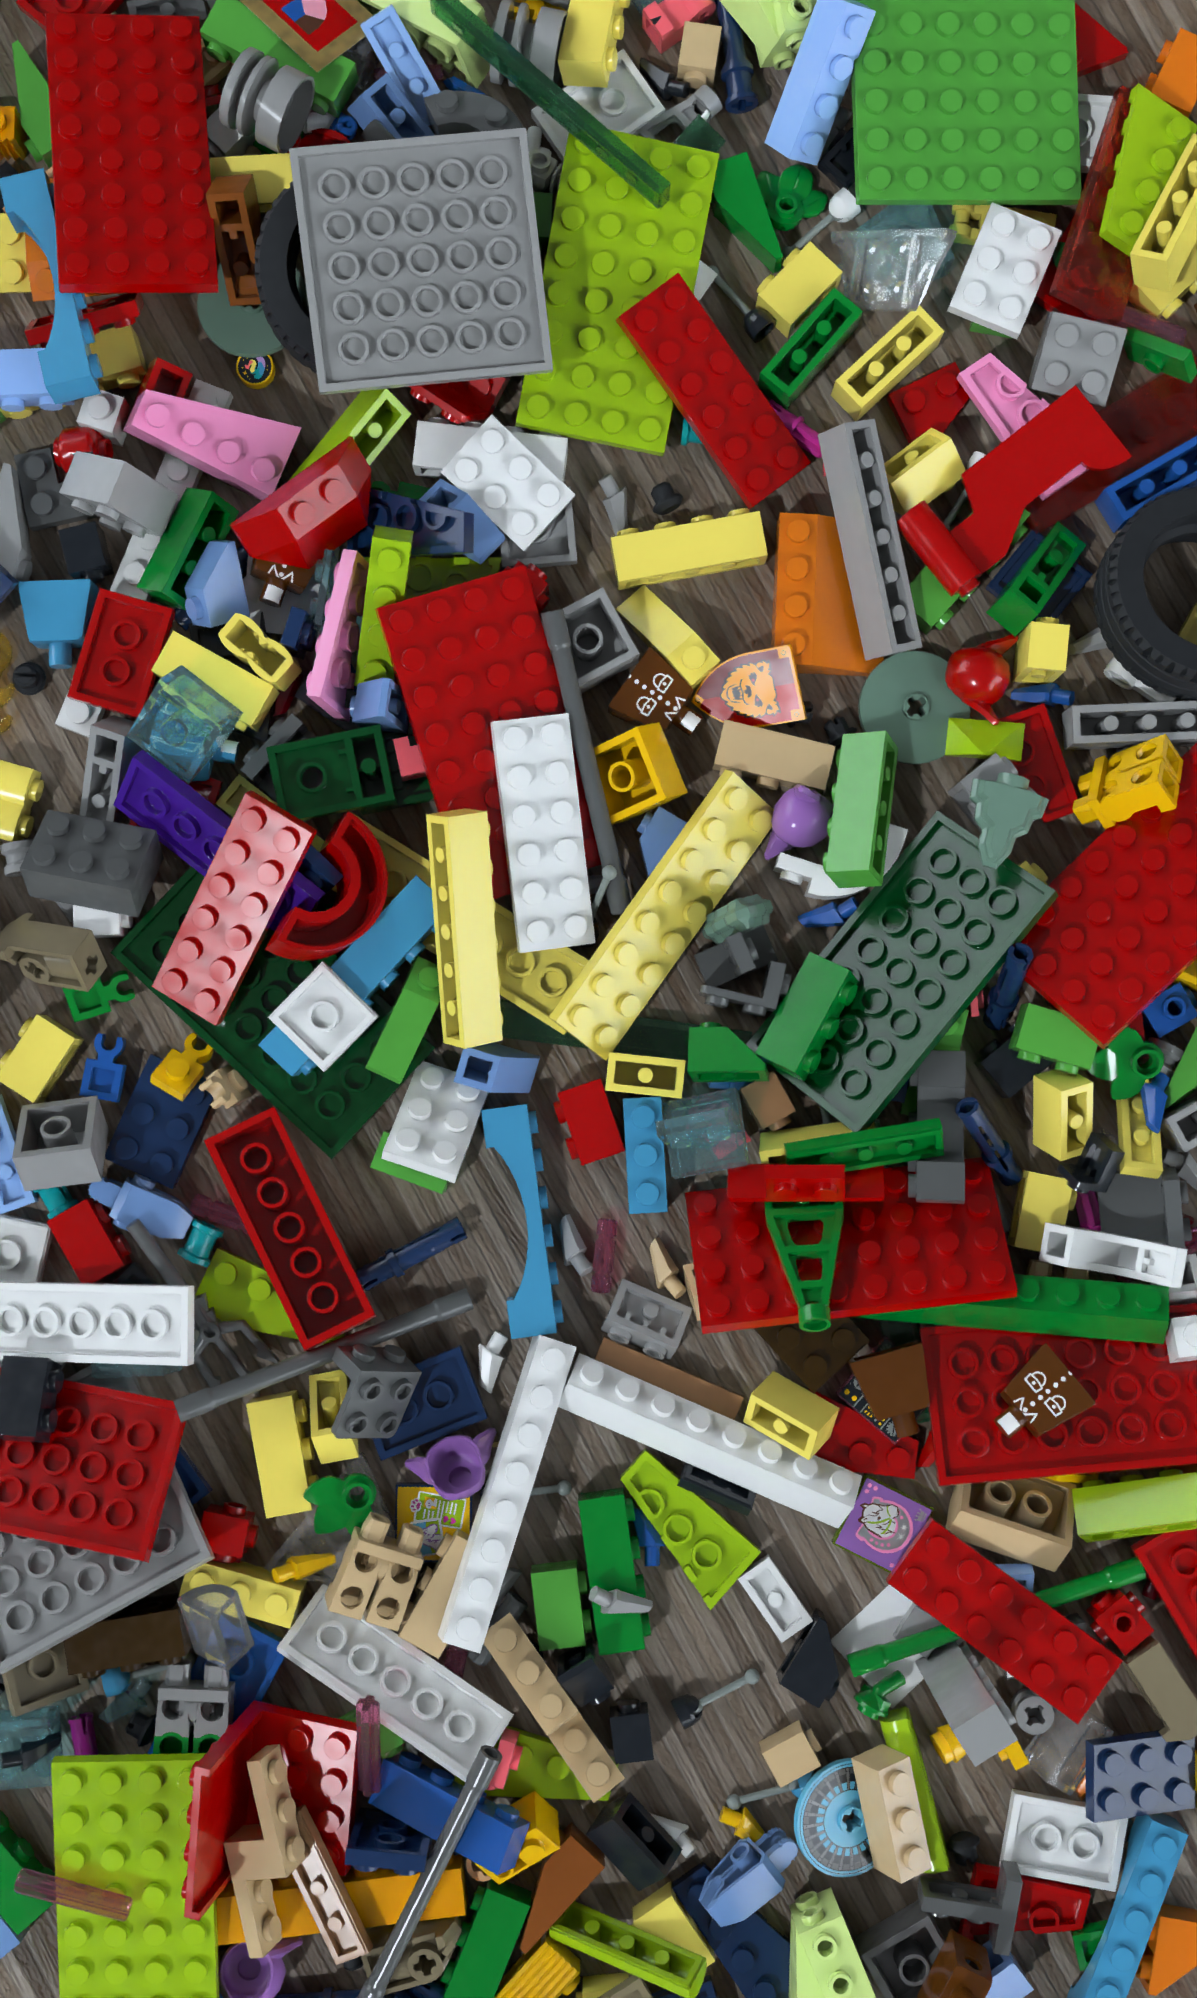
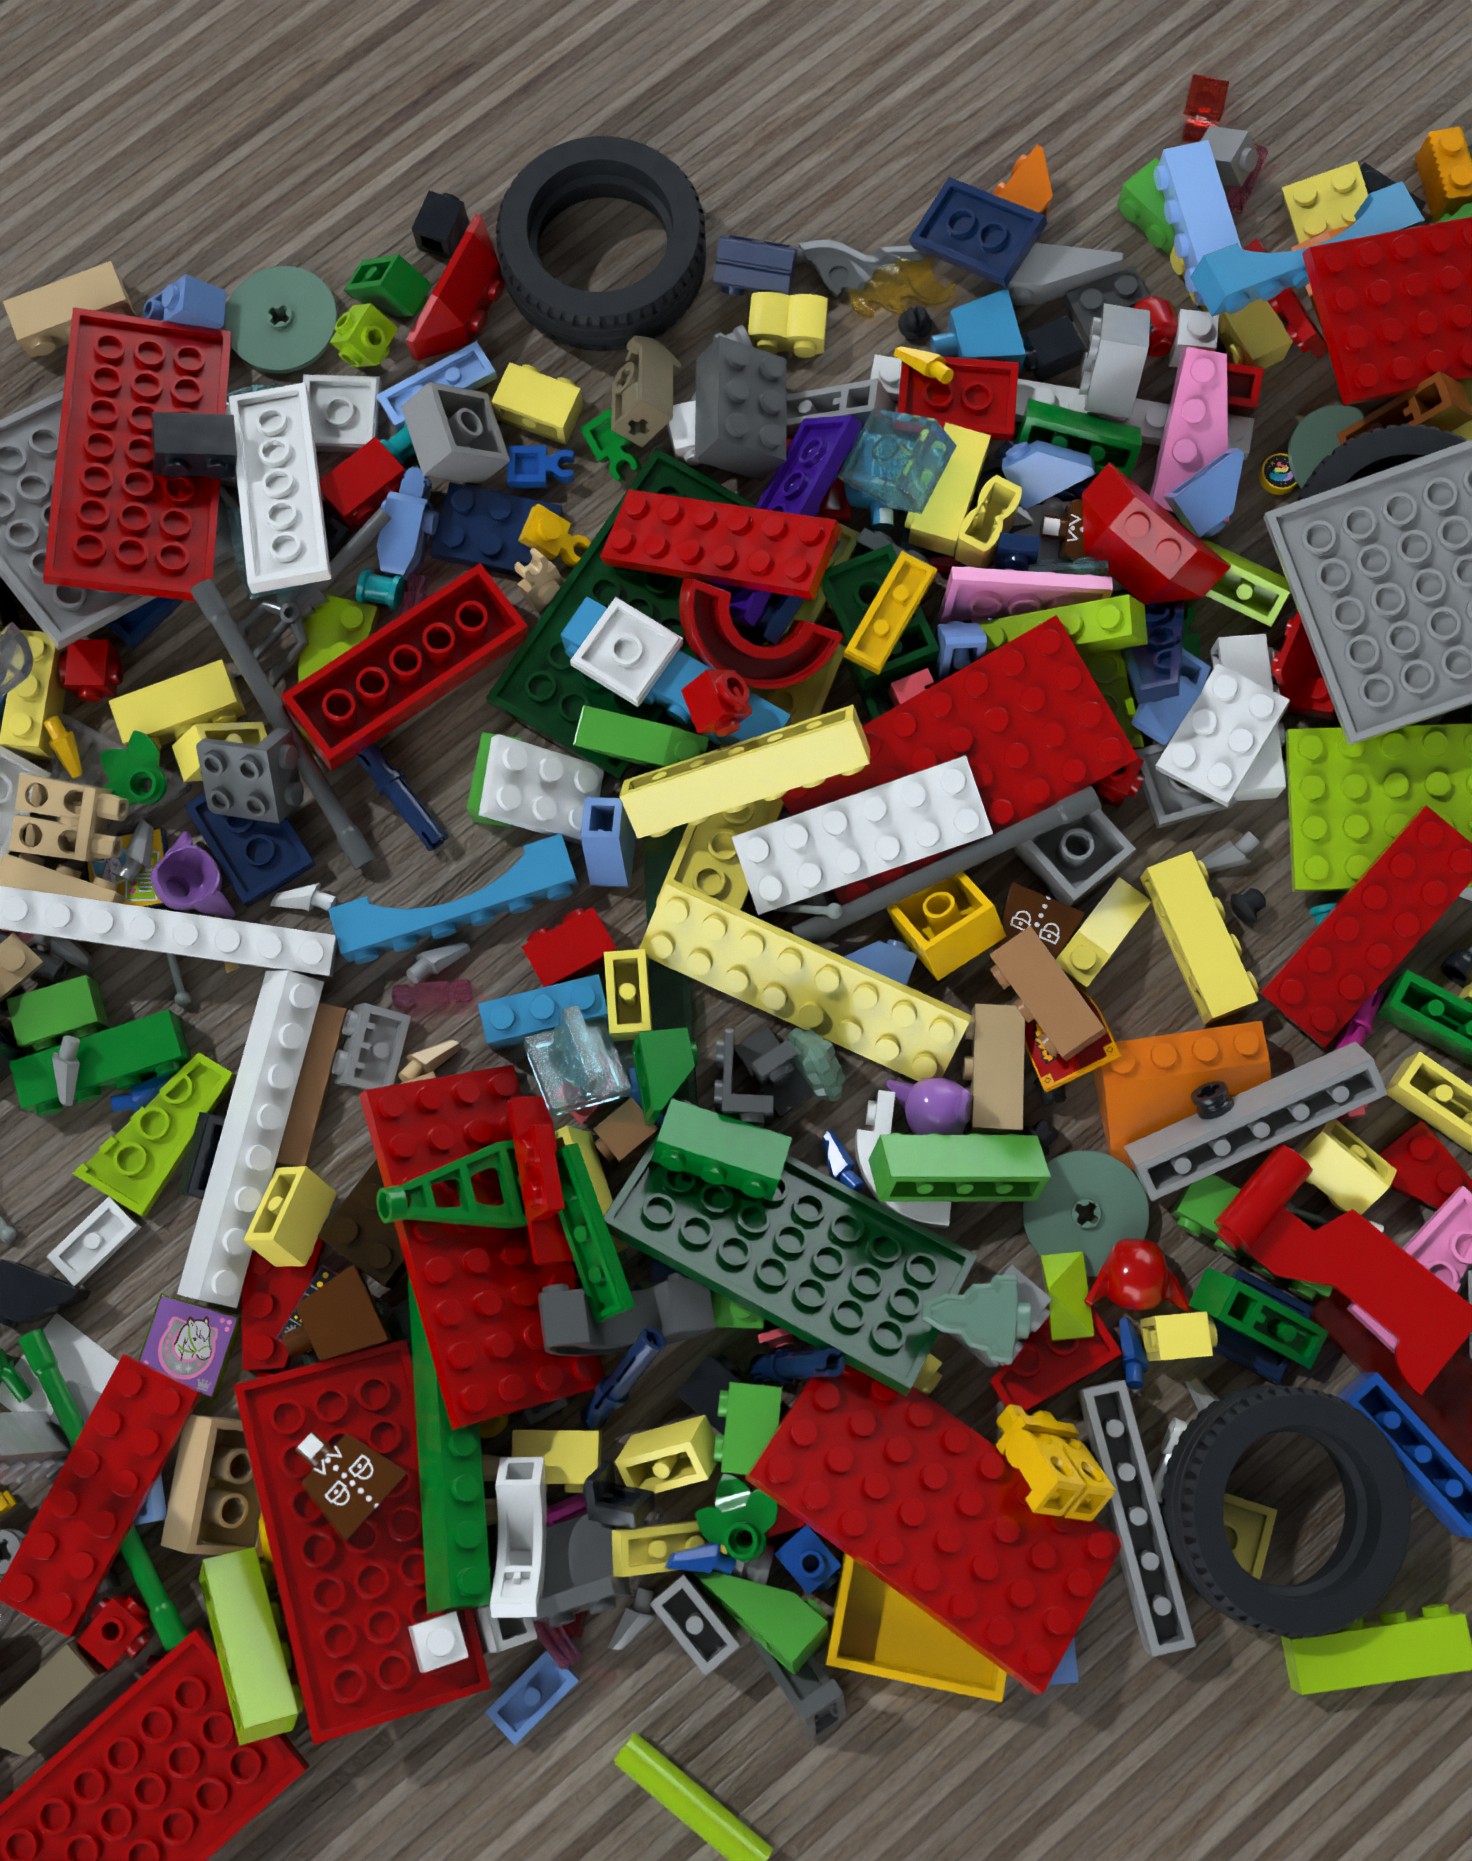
camera: 80 degrees right, 10 degrees down
(85, 676) = (926, 363): none -> yellow bar
(277, 439) = (1209, 494): none -> medium blue slope
(336, 762) = (890, 612): none -> yellow tile
(396, 939) = (717, 701): none -> red brick
(417, 1509) = (138, 851): none -> light grey bar
(724, 697) = (1046, 995): none -> medium nougat brick
(844, 573) = (1212, 1100): none -> black bush

